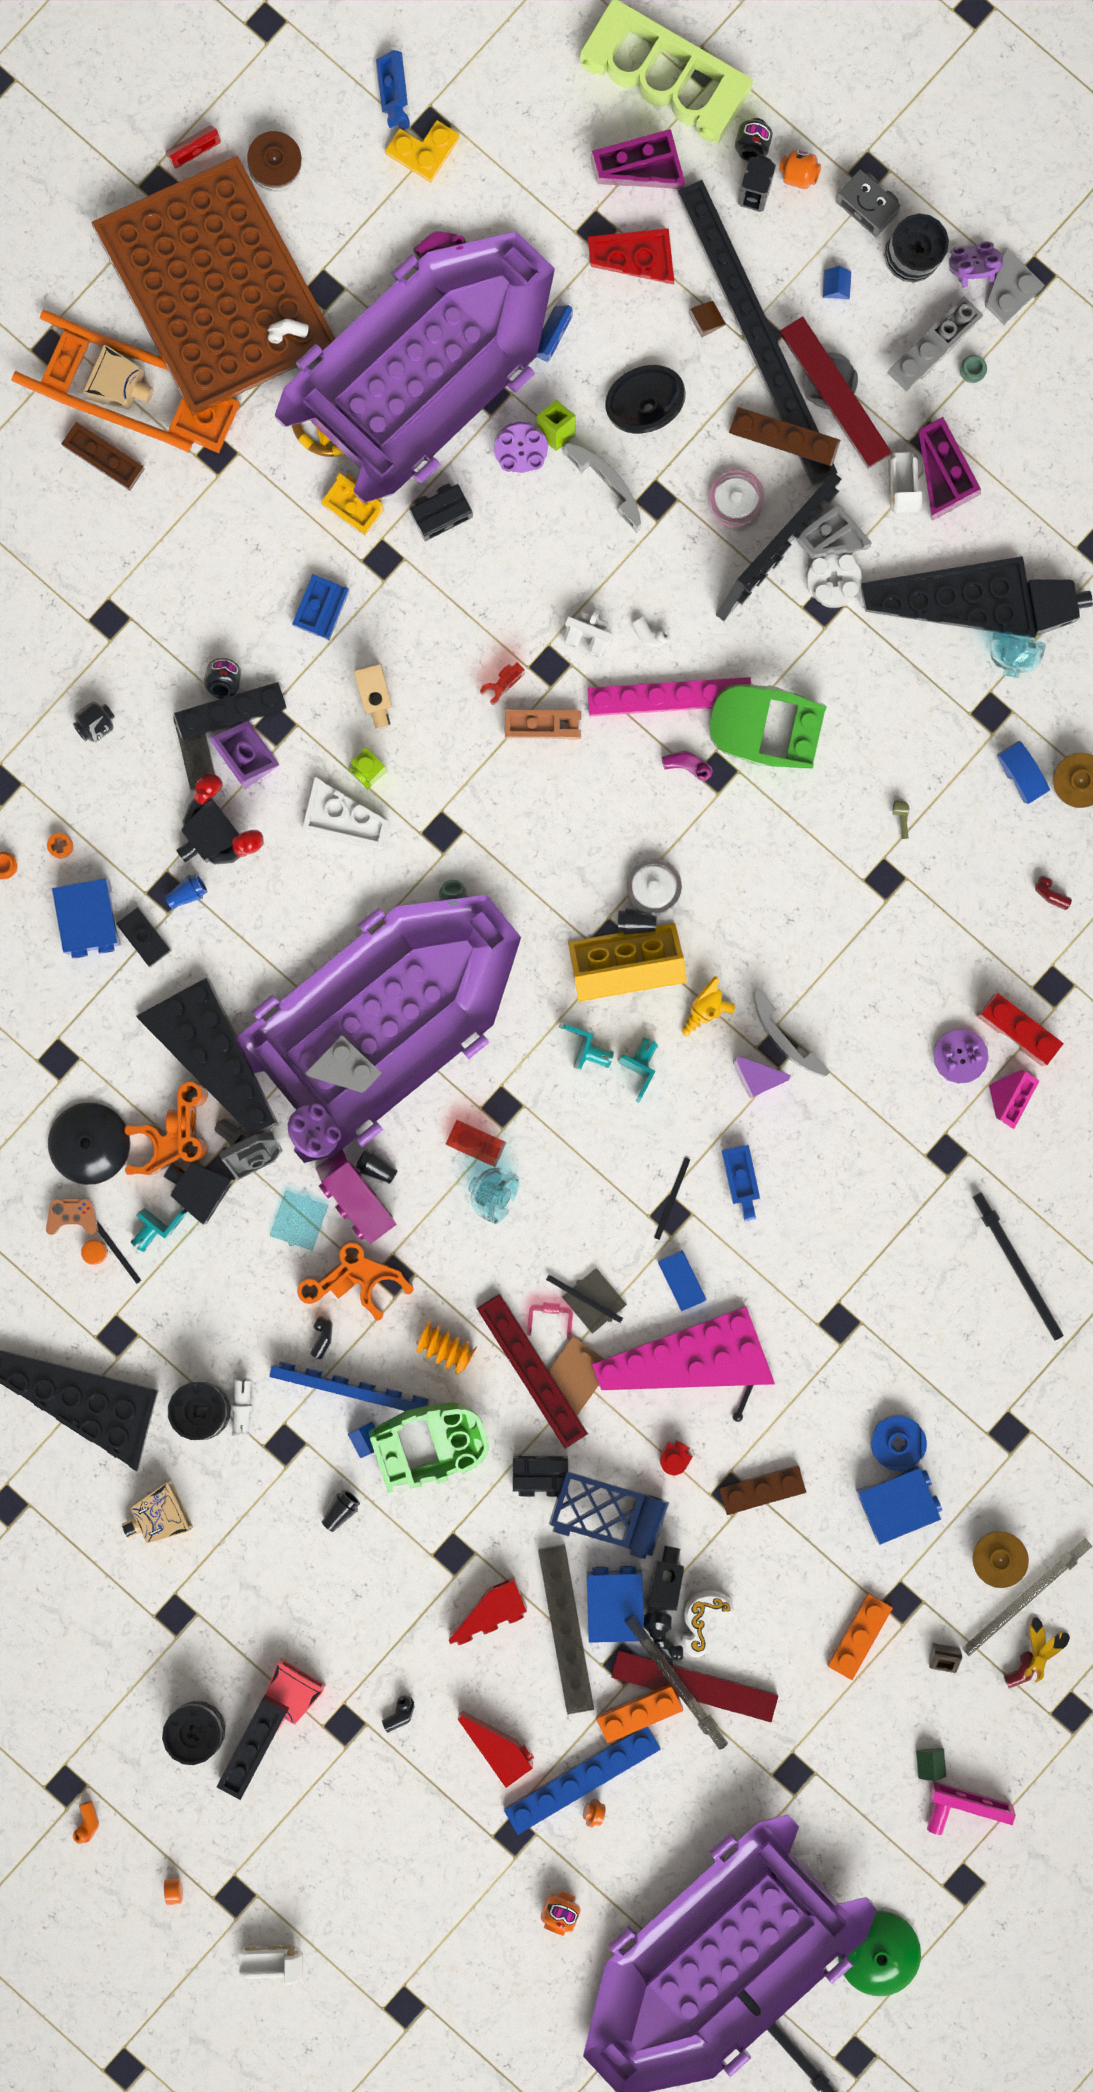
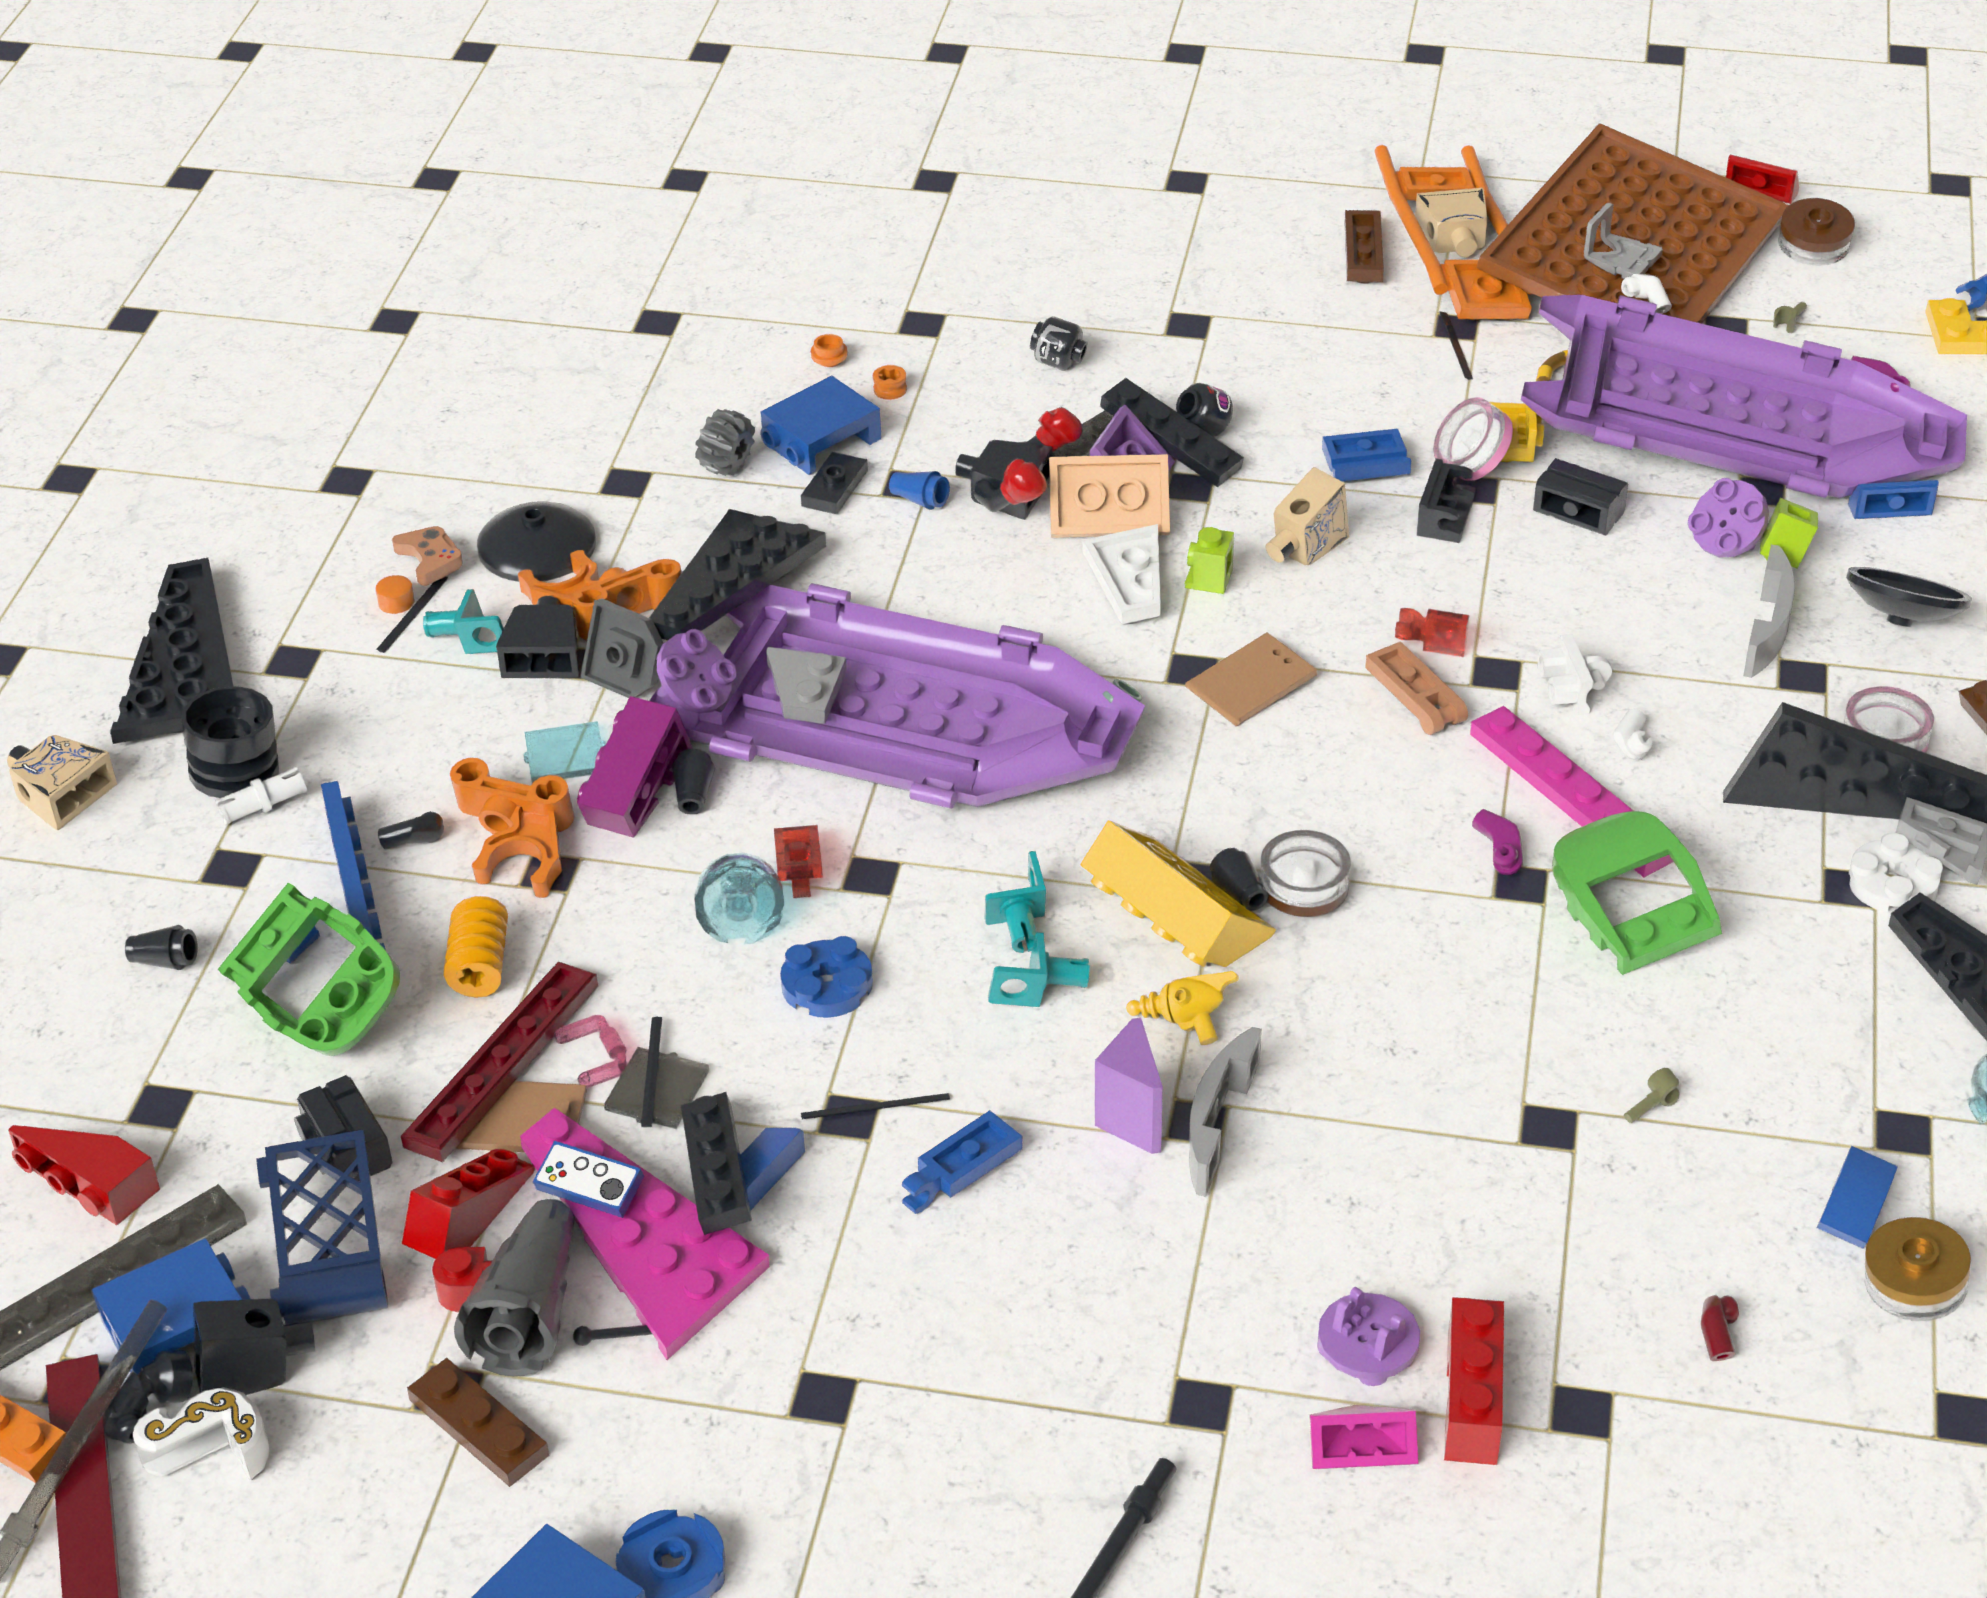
camera: 55 degrees right, 45 degrees down
(77, 988) = (725, 442): none -> dark grey gear
(237, 469) = (1456, 346): none -> black piece
(248, 314) = (1628, 254): none -> light grey piece
(276, 791) = (1108, 494): none -> light nougat plate
(342, 243) = (1788, 315): none -> olive hand
(360, 543) = (1474, 437): none -> clear piece
(395, 593) = (1445, 503): none -> black hinge
(475, 807) = (1251, 679): none -> medium nougat container
(577, 1189) = (835, 957): none -> blue plate
(624, 1433) = (463, 1202): none -> red slope
(657, 1373) = (588, 1179): none -> tile
(677, 1304) = (715, 1163): none -> black plate
(704, 1434) = (520, 1296): none -> dark grey cone

